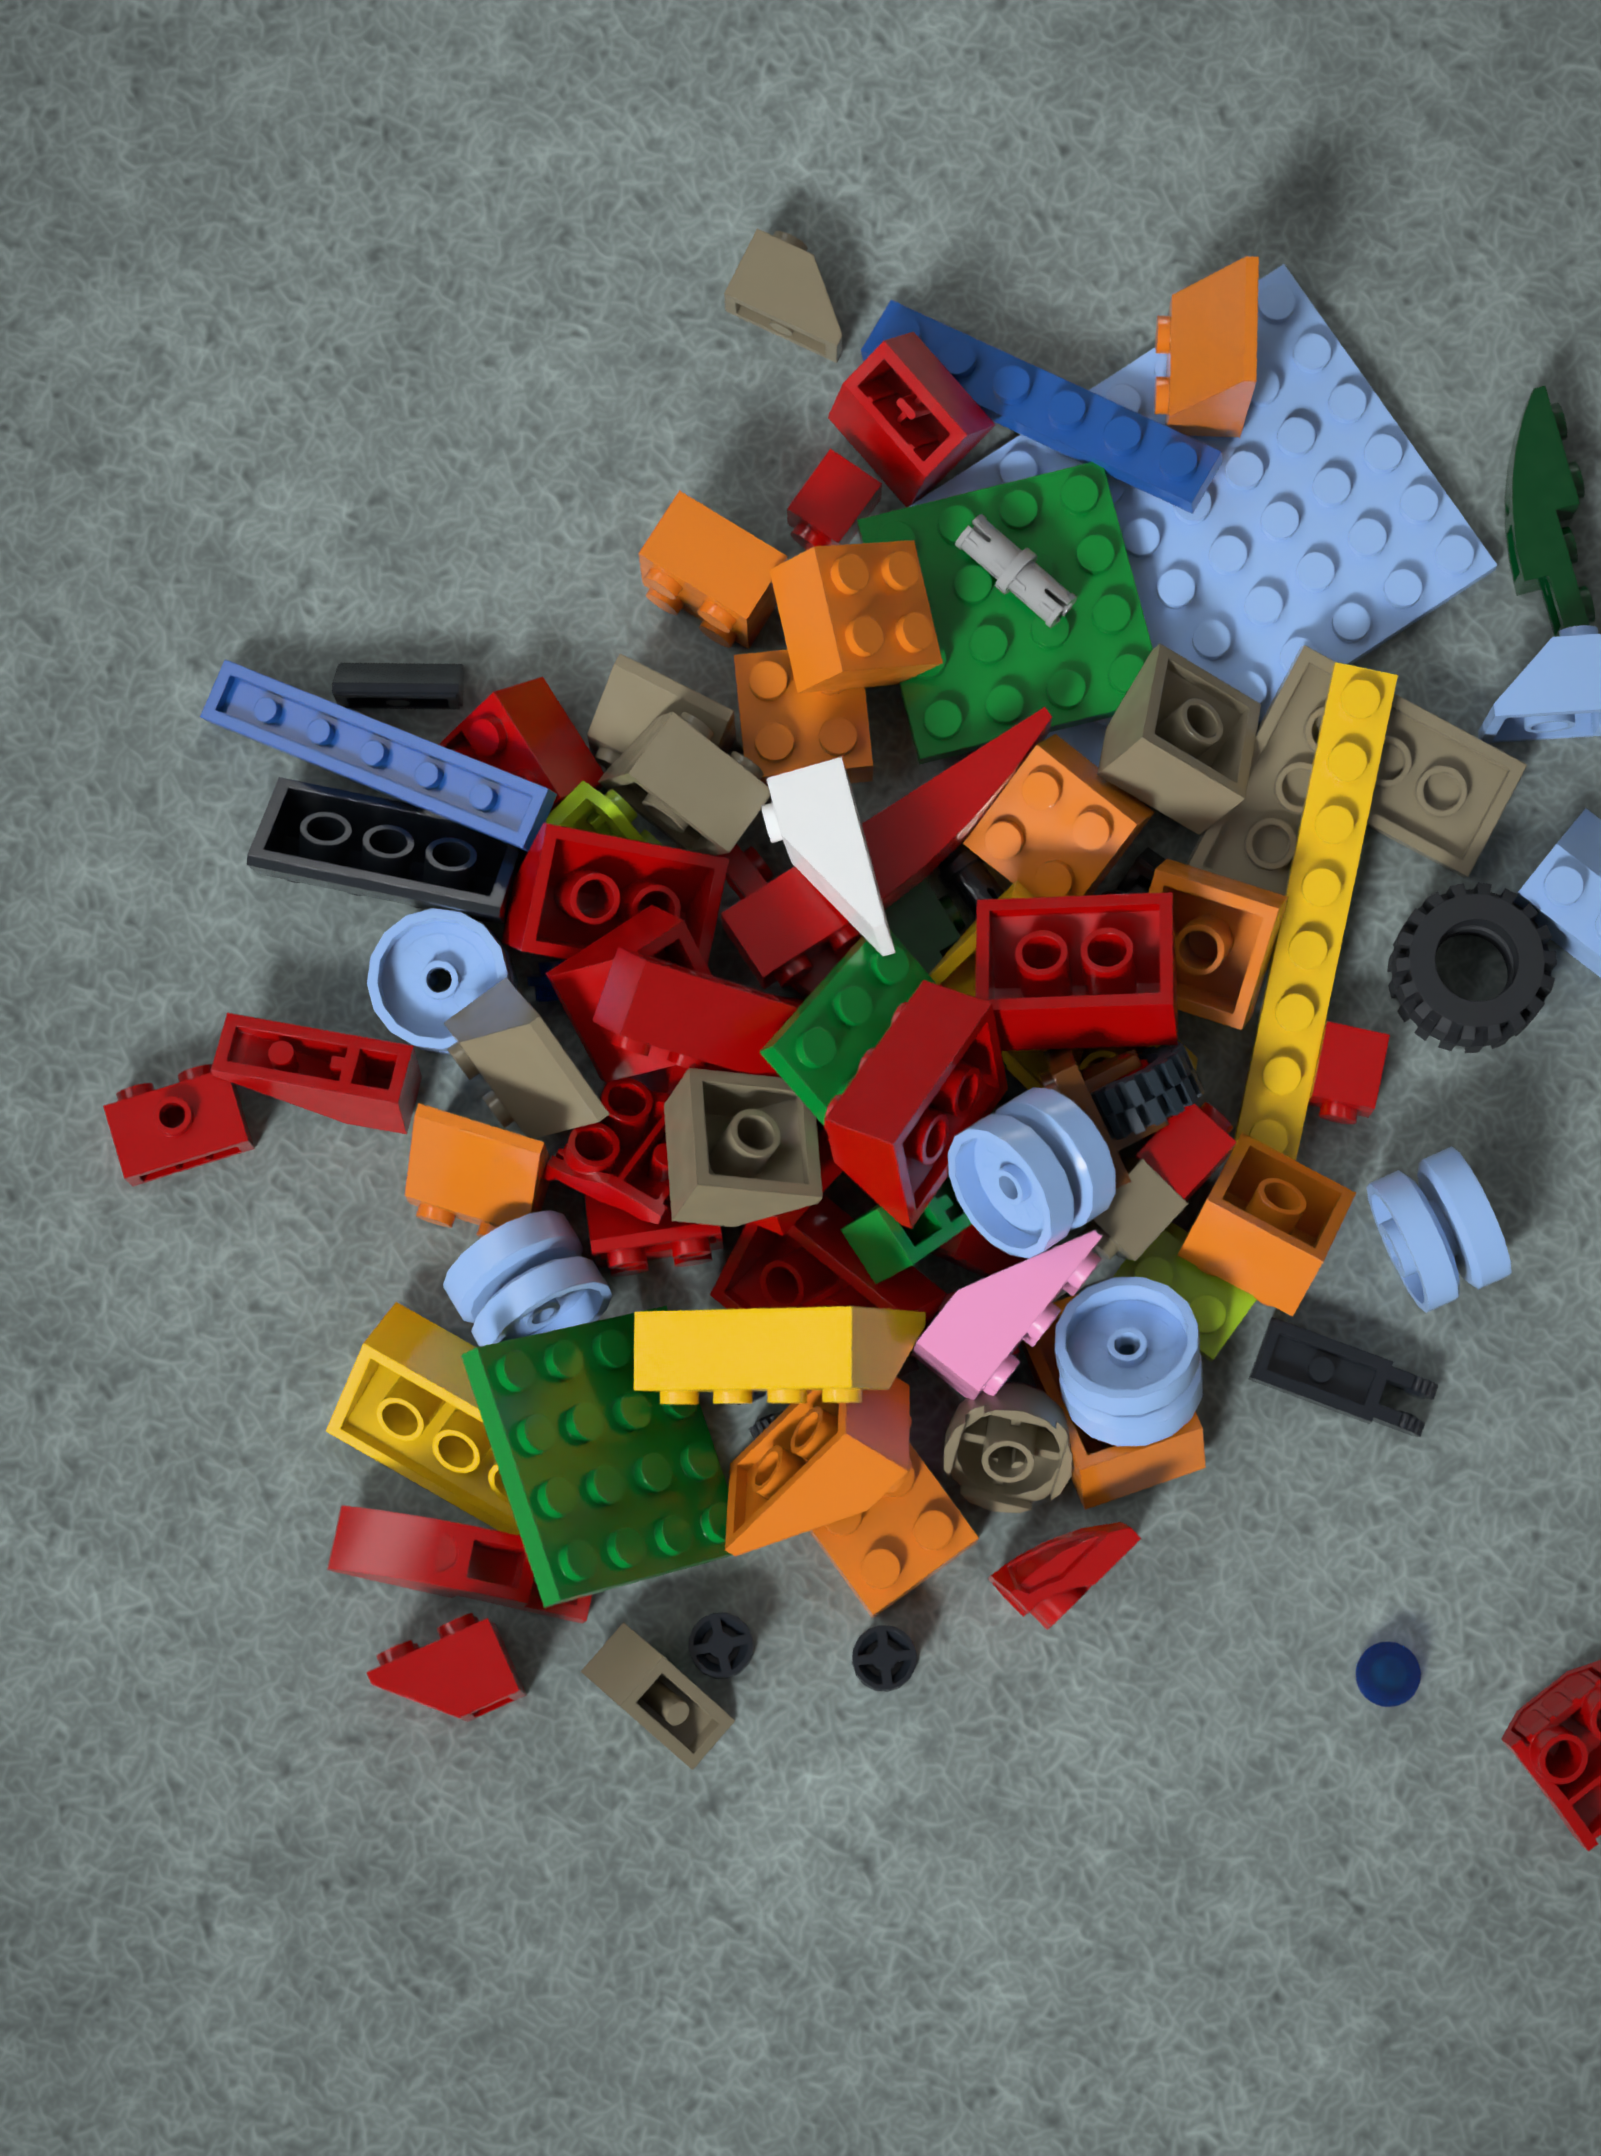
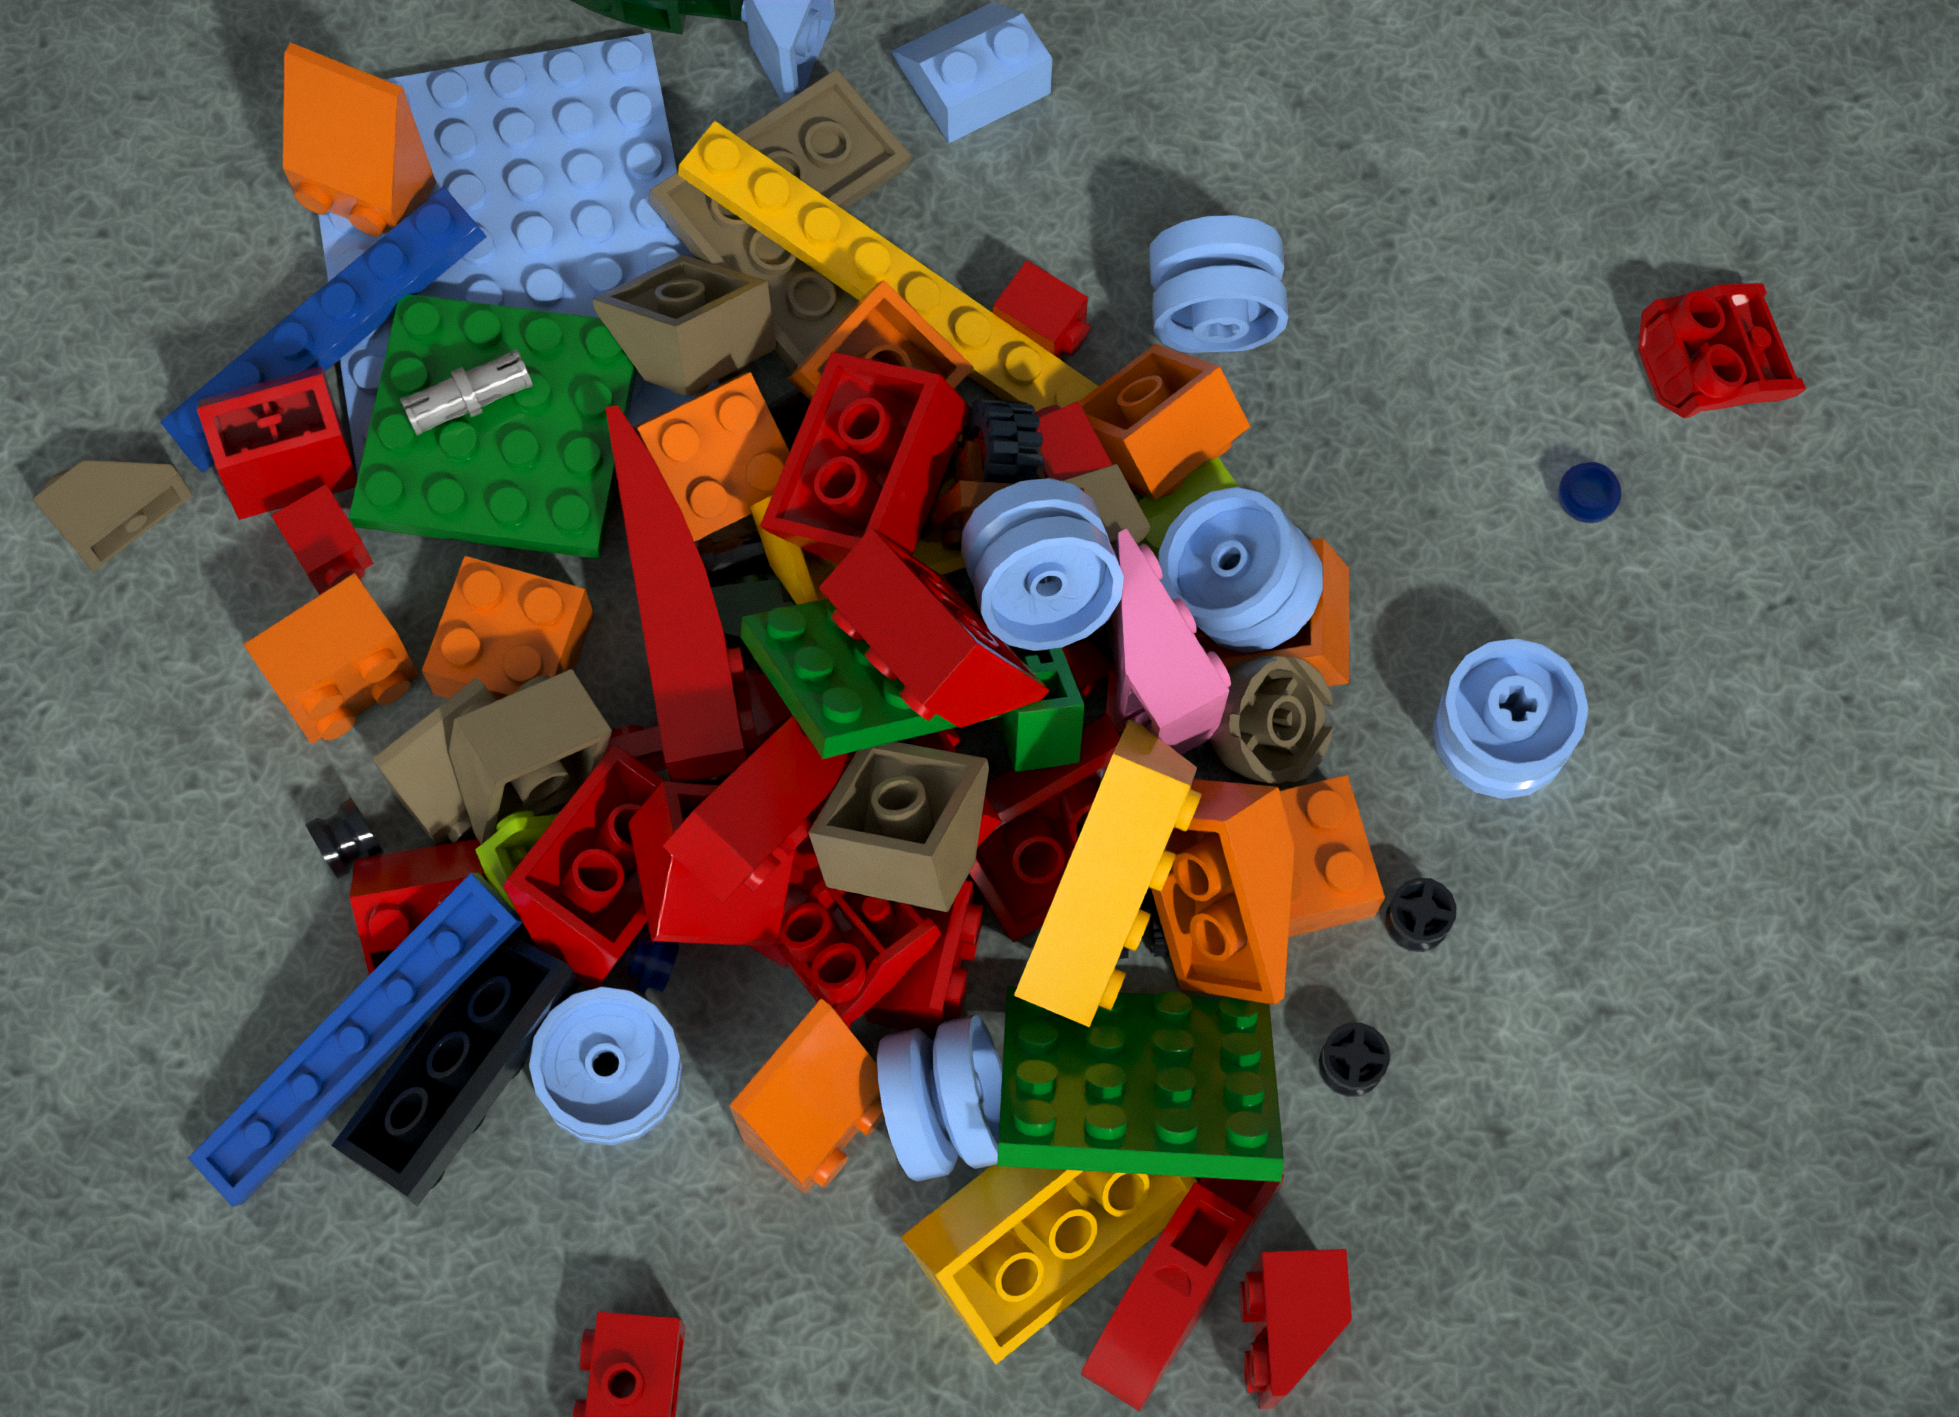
camera: 70 degrees left, 10 degrees down
(322, 1071) = (640, 1219): red slope -> none
(399, 685) = (298, 1000): black slope -> none
(522, 1065) = (727, 1003): dark tan slope -> none
(561, 657) = (344, 838): none -> black wheel
(658, 1696) = (1378, 1137): dark tan slope -> none
(826, 842) = (649, 631): white slope -> none
(855, 616) = (440, 535): orange brick -> none
(1062, 1570) = (1405, 715): red slope -> none
(1145, 1666) = (1509, 718): none -> light blue wheel
(1336, 1376) = (1307, 431): black hinge -> none
(1502, 924) = (994, 221): black tyre -> none

